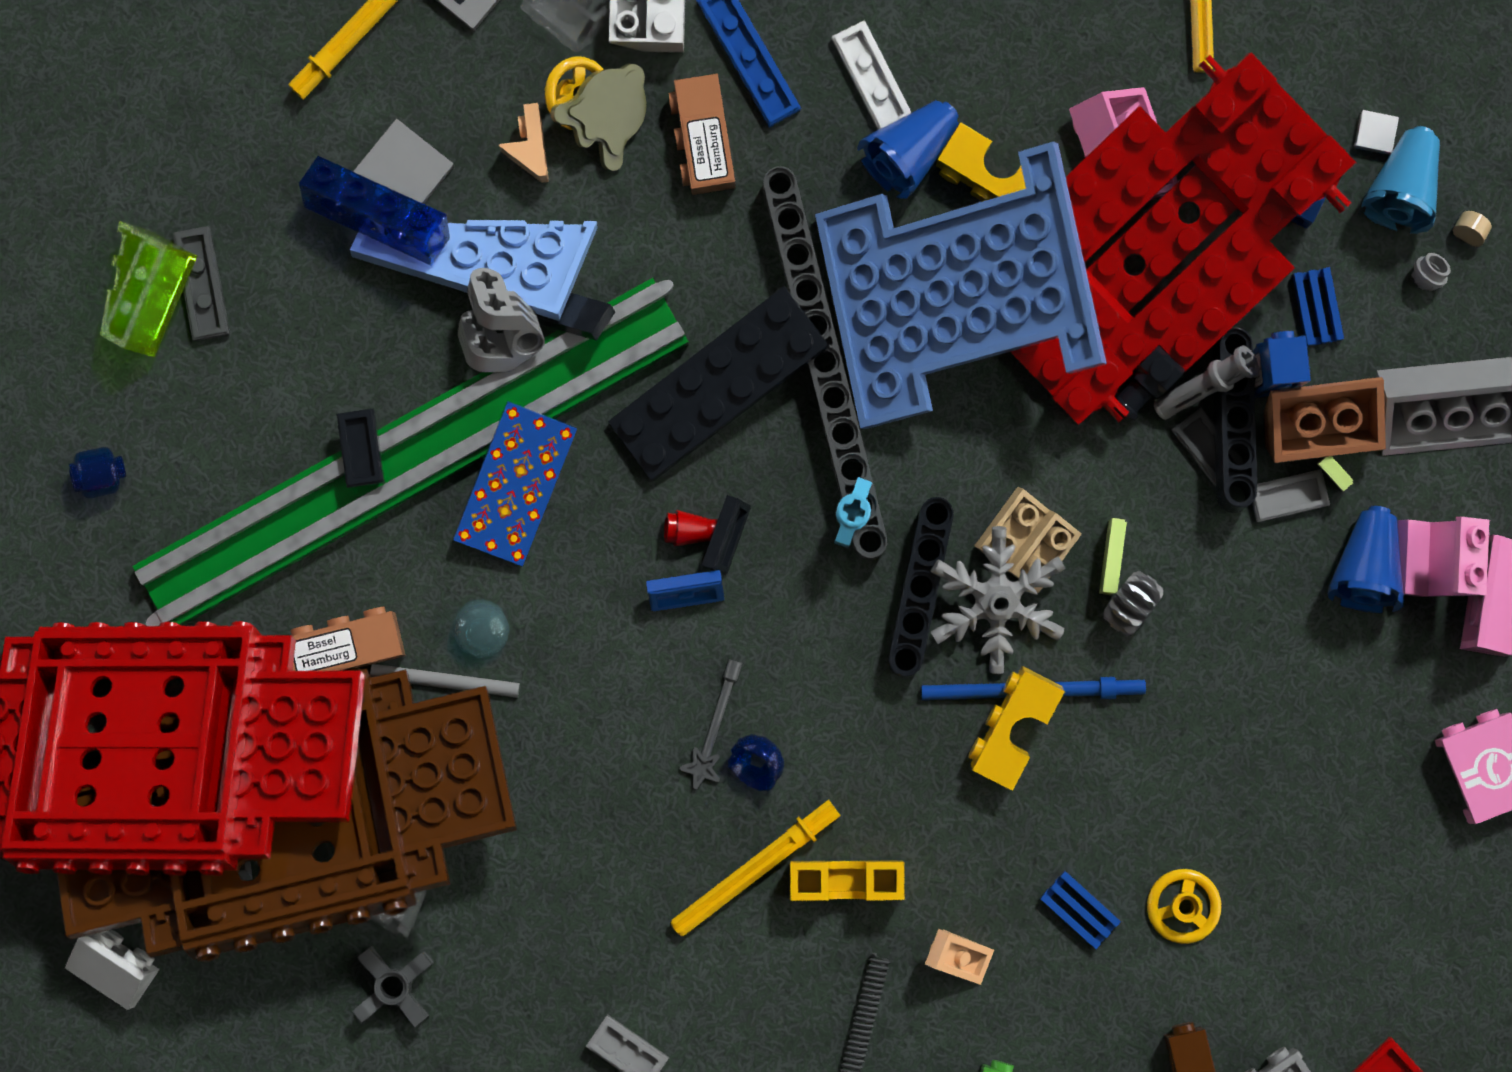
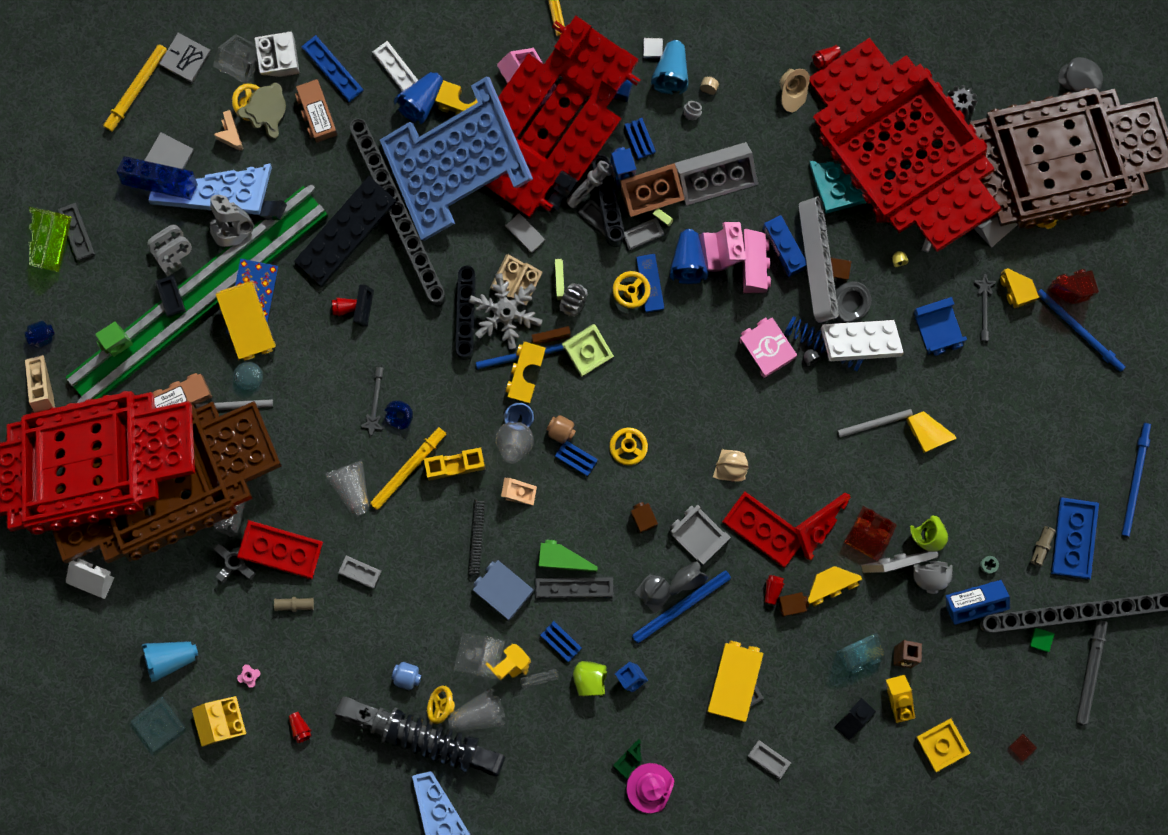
camera: 10 degrees left, 5 degrees down
(79, 571) = (38, 384): none -> tan slope
(236, 517) = (113, 339): none -> bright green brick
(371, 361) = (169, 252): none -> light grey piece
(482, 981) = (279, 549): none -> red tile
(496, 523) = (245, 320): none -> yellow panel
(640, 884) = (351, 486): none -> clear cone
(685, 590) = (347, 336): blue tile -> none
(853, 512) = (423, 279): medium azure piece -> none
(967, 862) = (514, 441): none -> clear cone
(973, 803) = (515, 410): none -> medium blue hair
(1062, 451) = (525, 233): none -> light grey tile
(1062, 851) = (561, 429): none -> medium nougat head
(1076, 663) = (551, 335): none -> reddish brown tile
(1141, 705) = (587, 350): none -> yellowish green tile
(1251, 631) = (617, 286): none -> yellow piece
(1285, 595) = (648, 267): none -> blue tile
(1374, 982) = (731, 466): none -> tan piece

